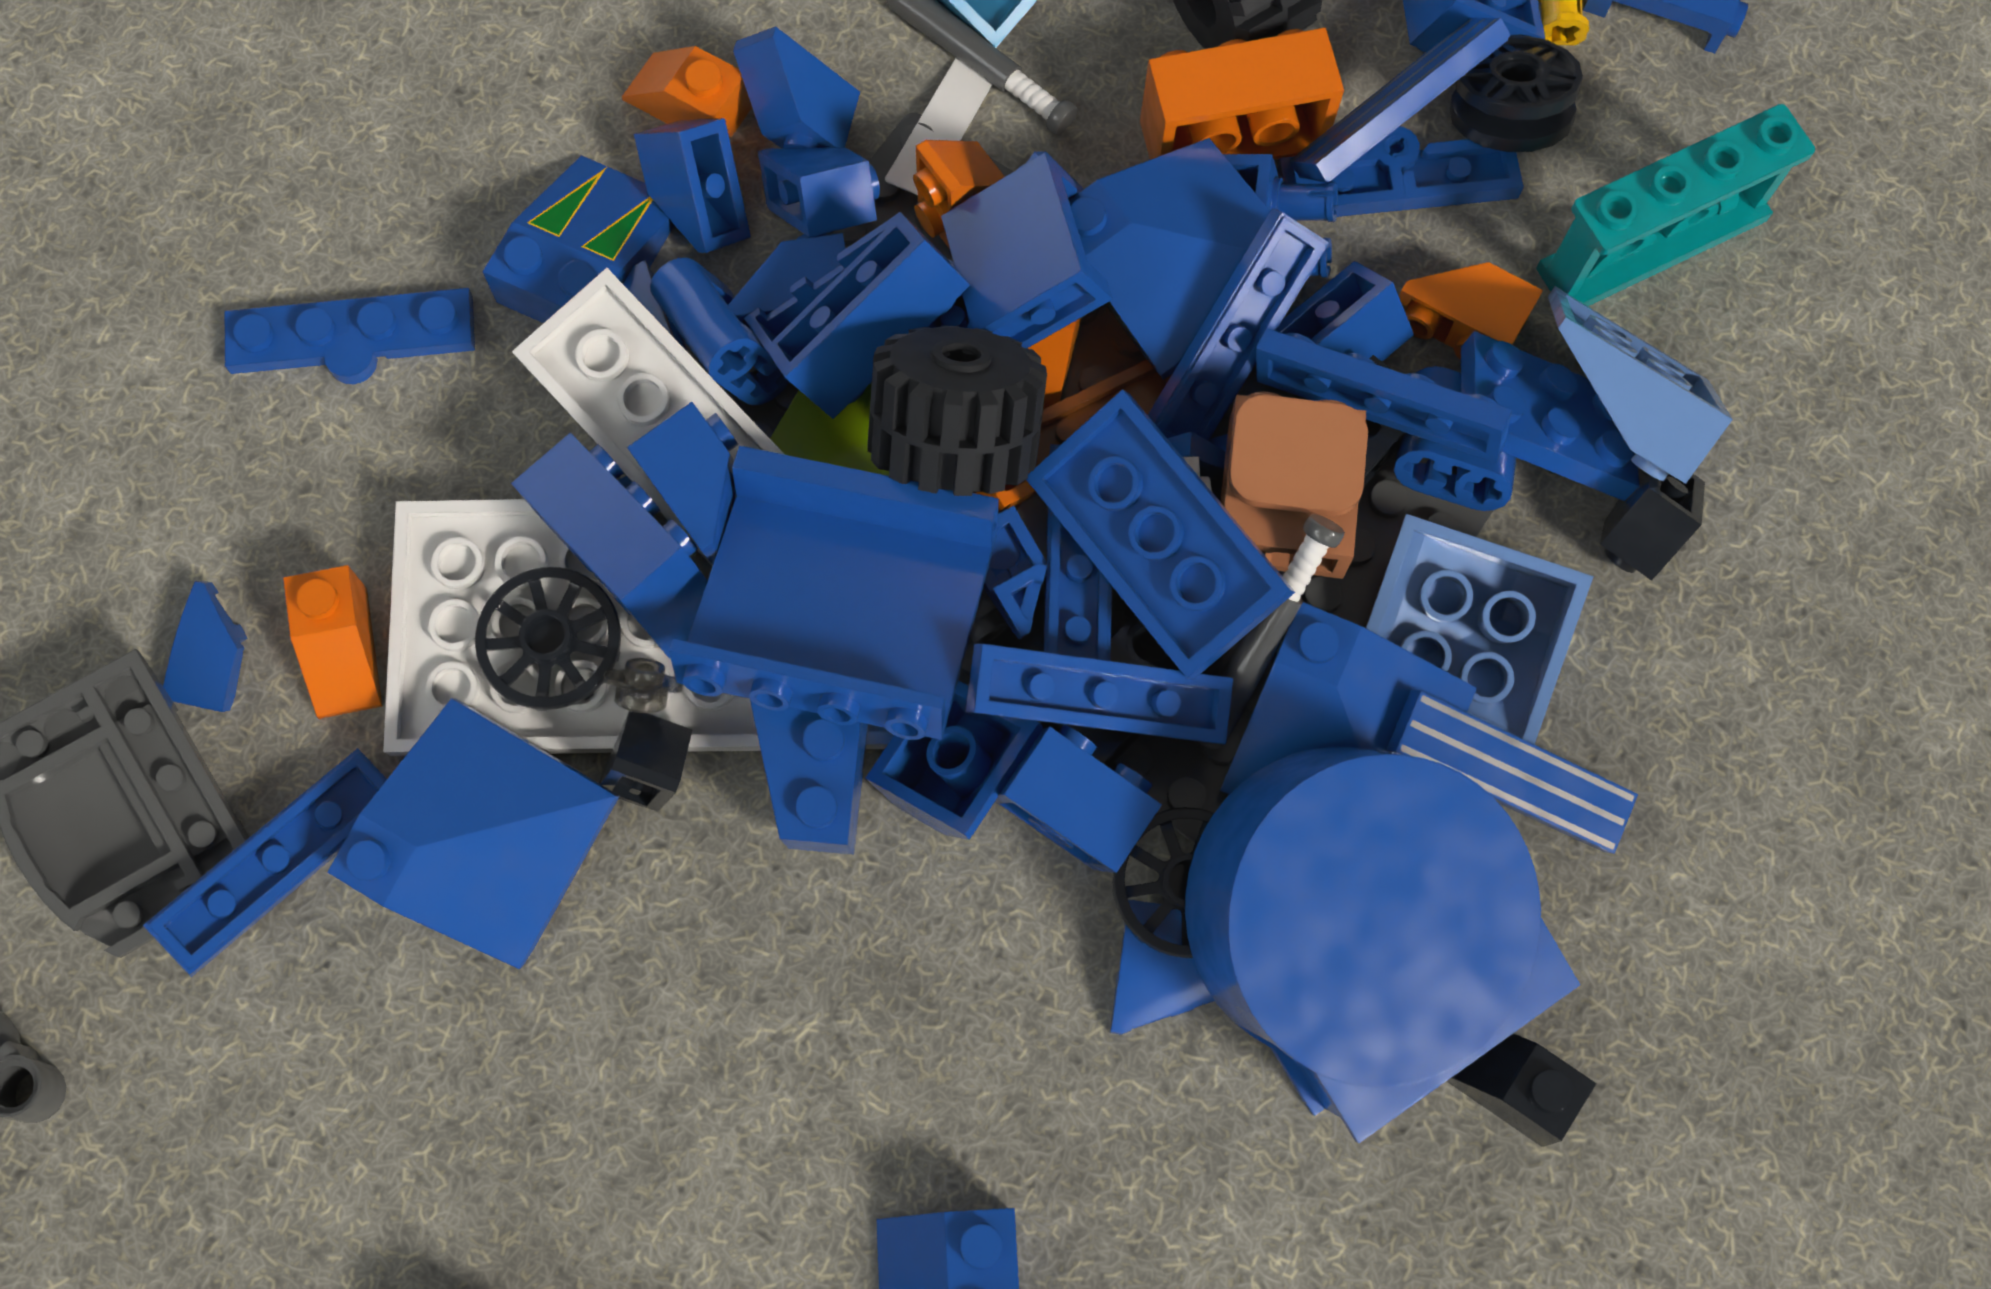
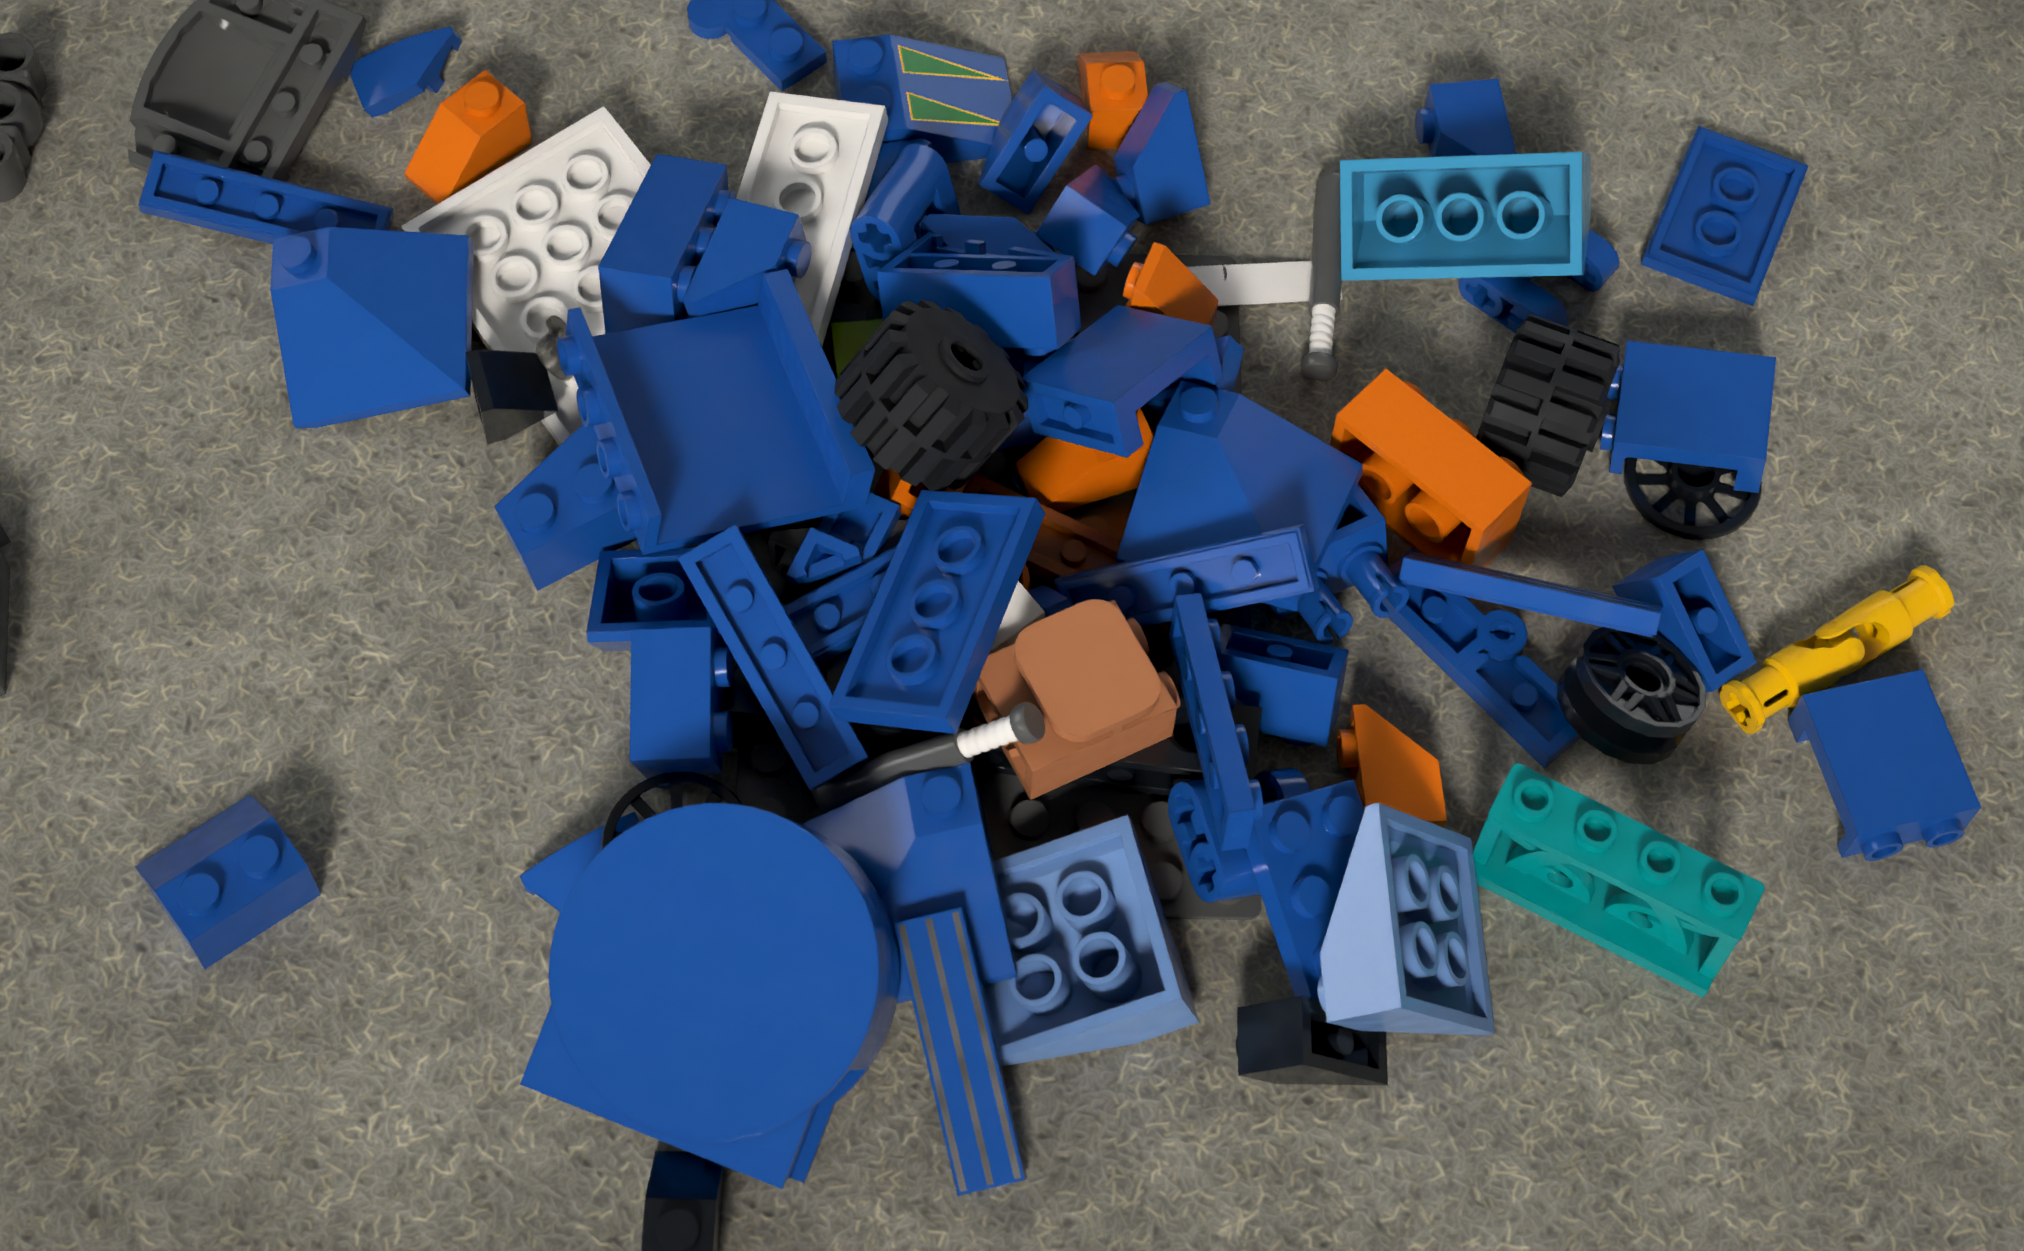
camera: 55 degrees right, 10 degrees down
(548, 639) = (560, 266): black wheel -> none

